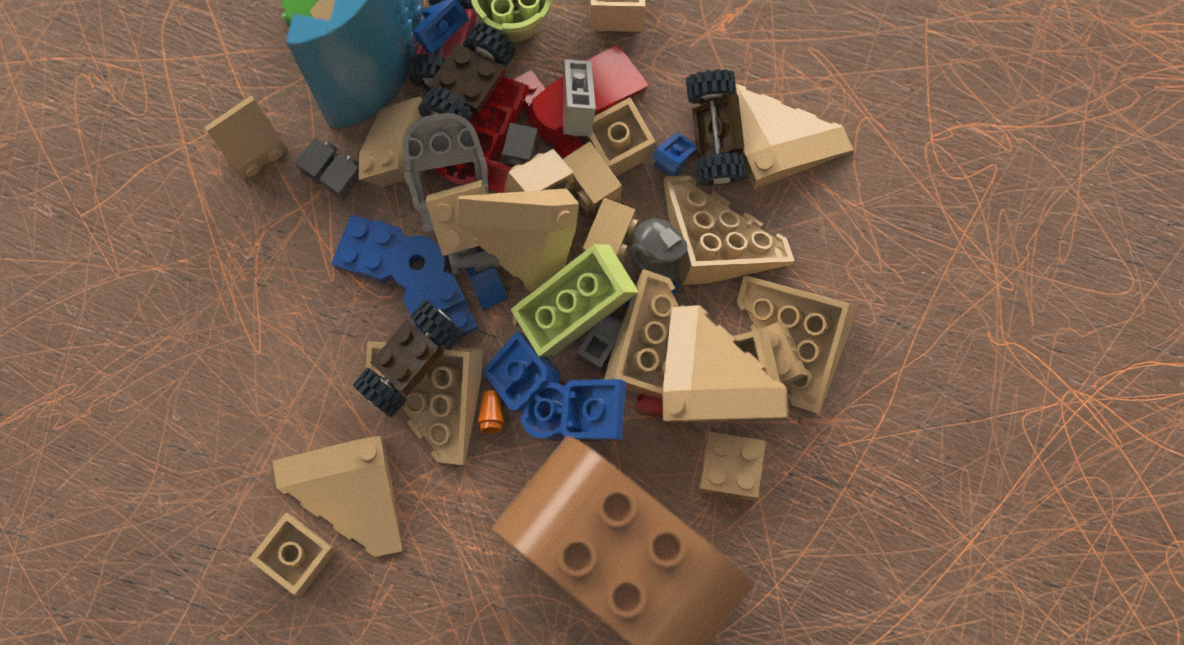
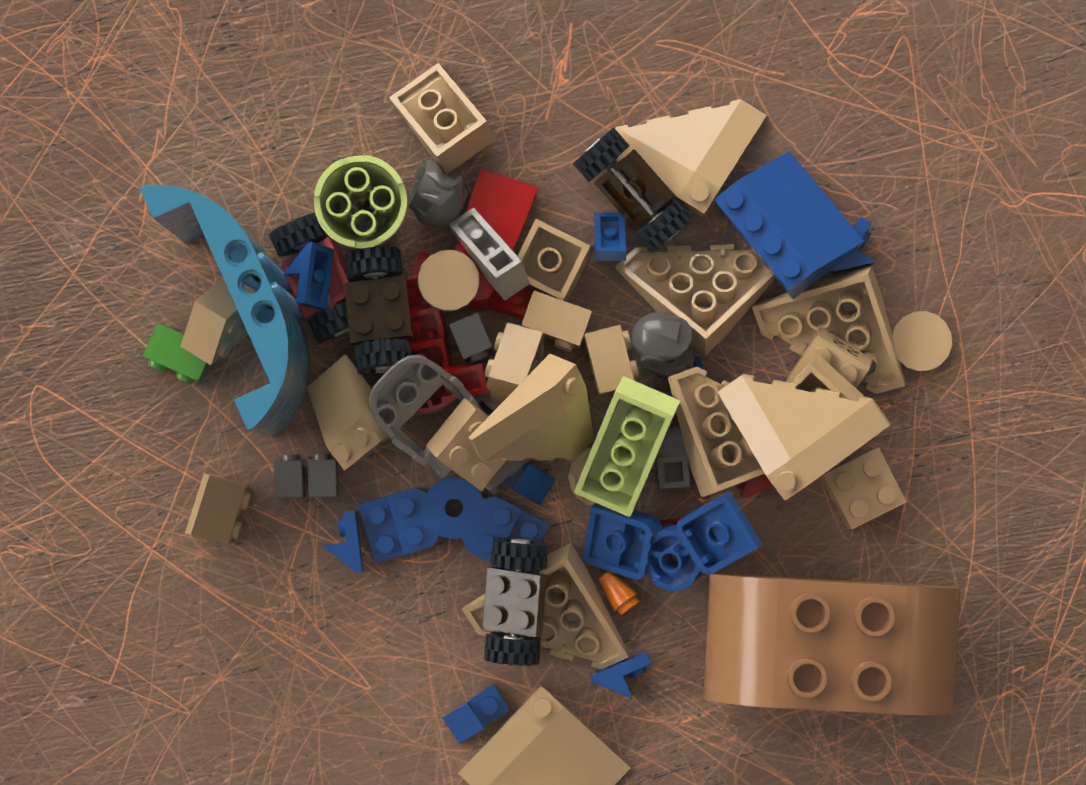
camera: 40 degrees left, 10 degrees up
(320, 426) = (476, 713): none -> blue slope
(322, 240) = (348, 552): none -> blue slope
(440, 471) = (613, 678): none -> blue slope
(534, 95) = (448, 280): none -> tan tile
(571, 37) = (435, 196): none -> dark grey helmet
(814, 231) = (789, 223): none -> blue slope
(844, 286) = (857, 258): none -> blue slope
(855, 391) = (922, 341): none -> tan tile

